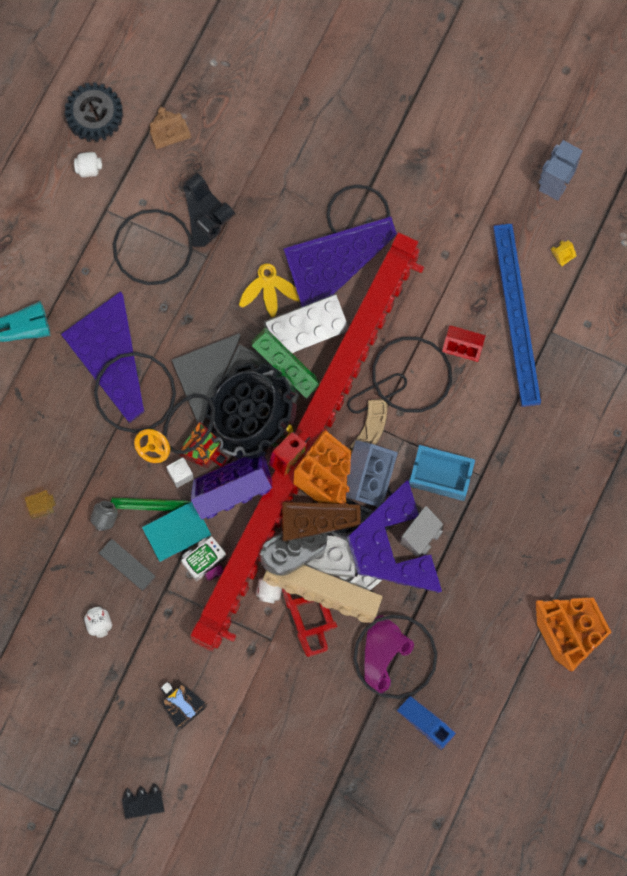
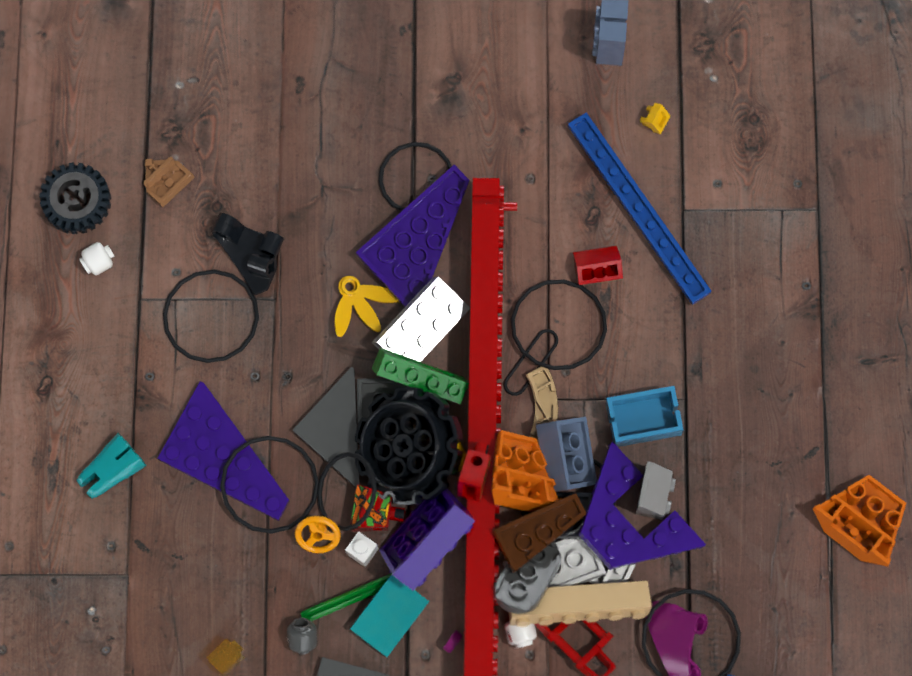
camera: 20 degrees left, 0 degrees up
(203, 558) = (433, 631): brick -> none

